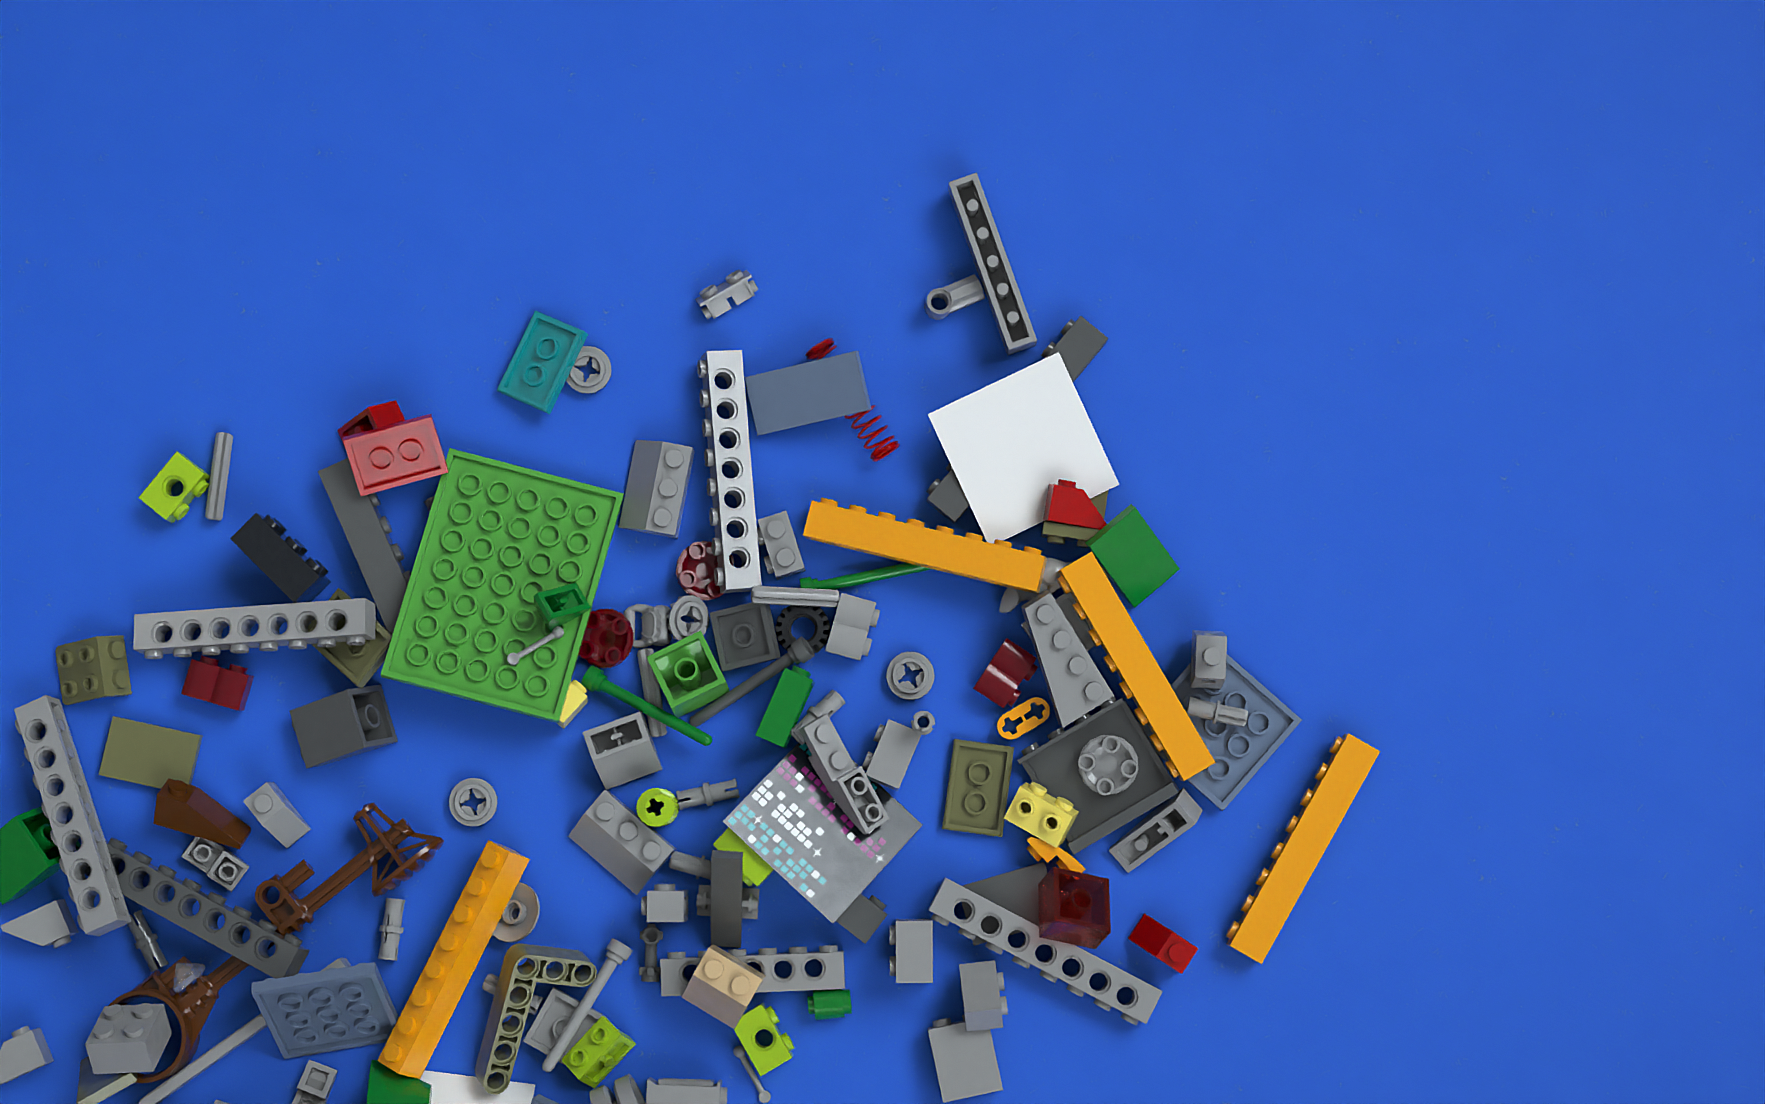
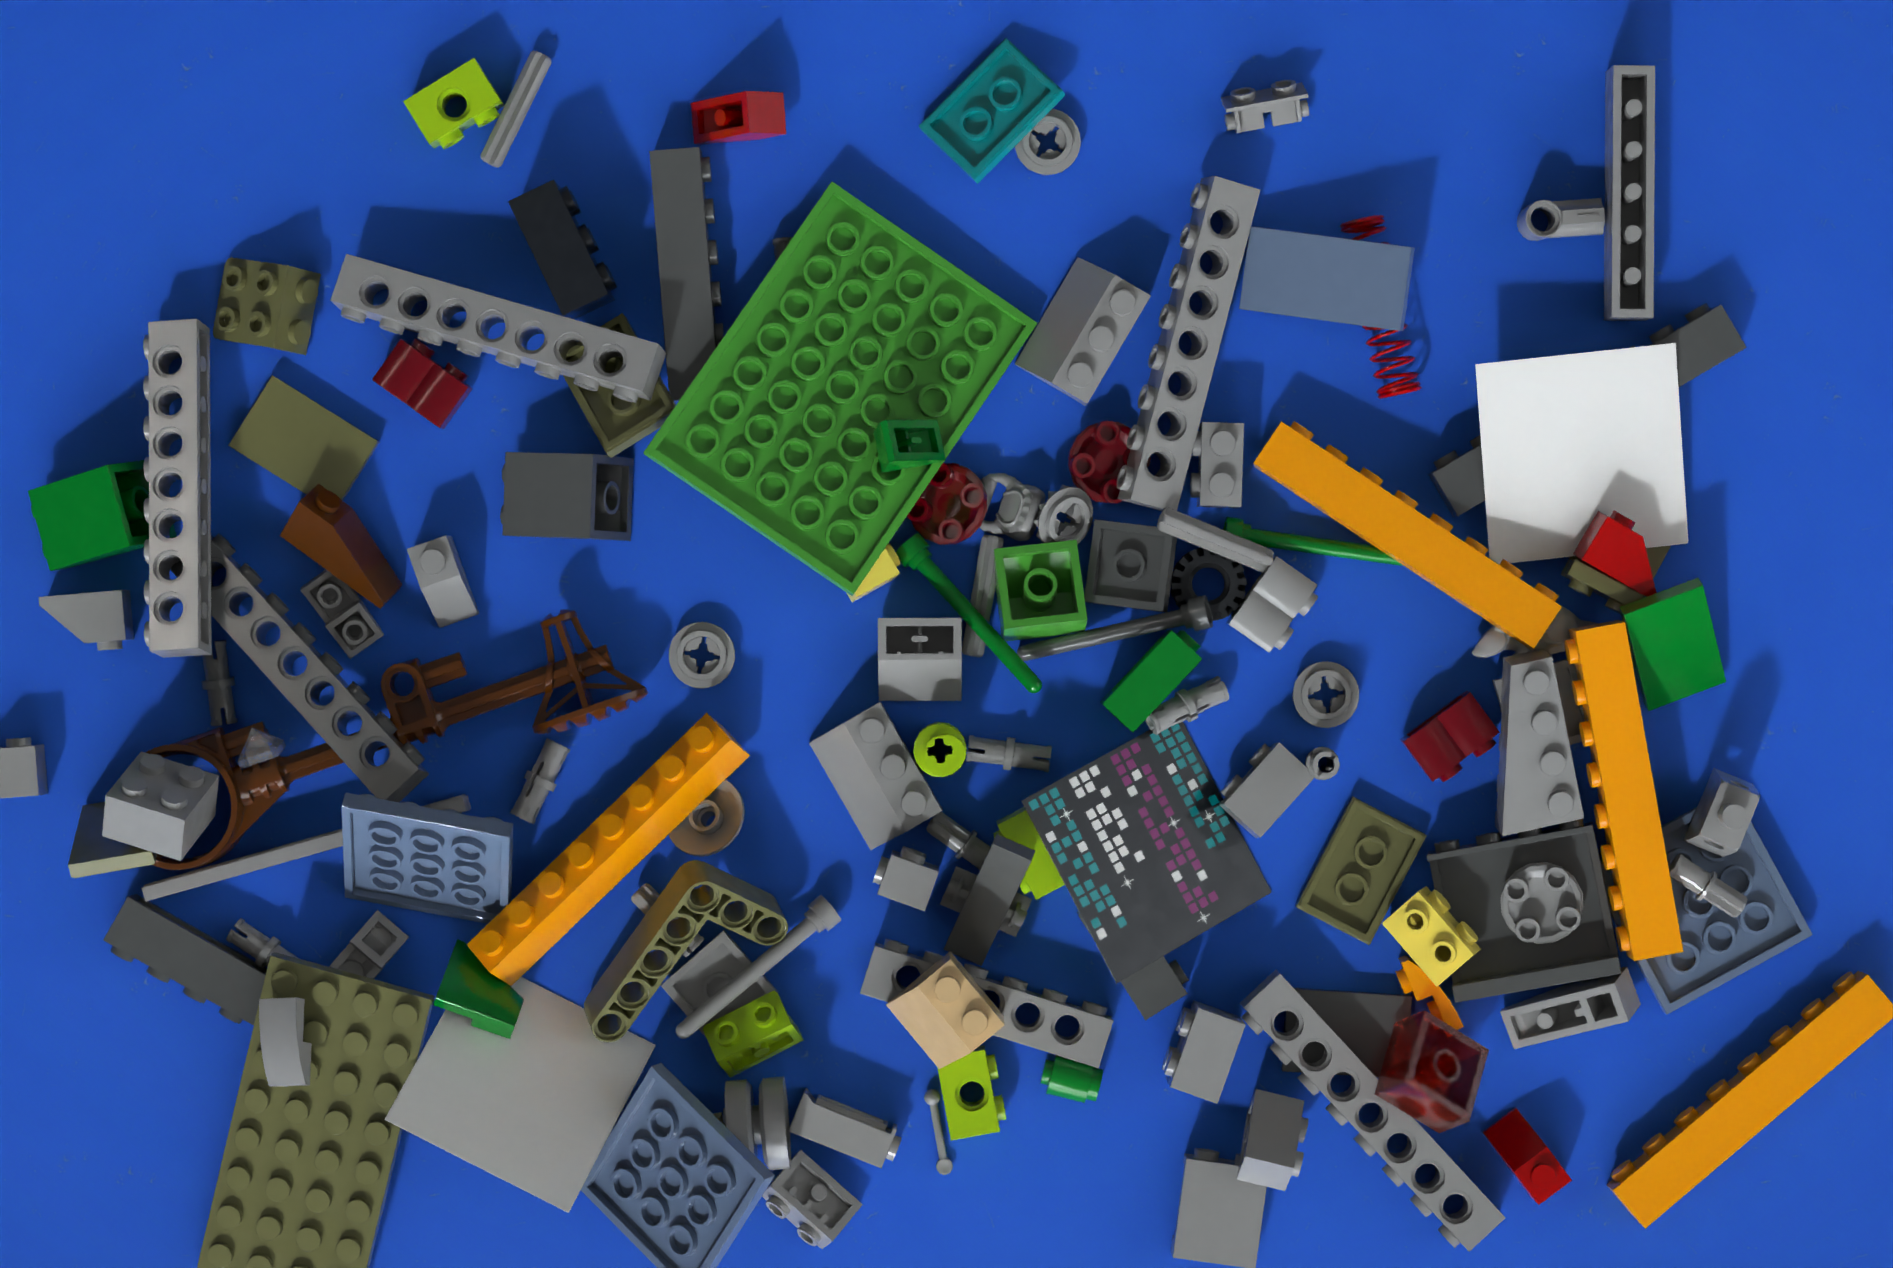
camera: 15 degrees right, 5 degrees up
(395, 454) = (760, 167): plate -> none
(513, 658) = (823, 491): light grey hinge -> none
(651, 936) = (872, 912): dark grey bar -> none
(841, 777) = (1190, 795): light grey slope -> none
(1026, 725) = (1452, 812): light orange beam -> none

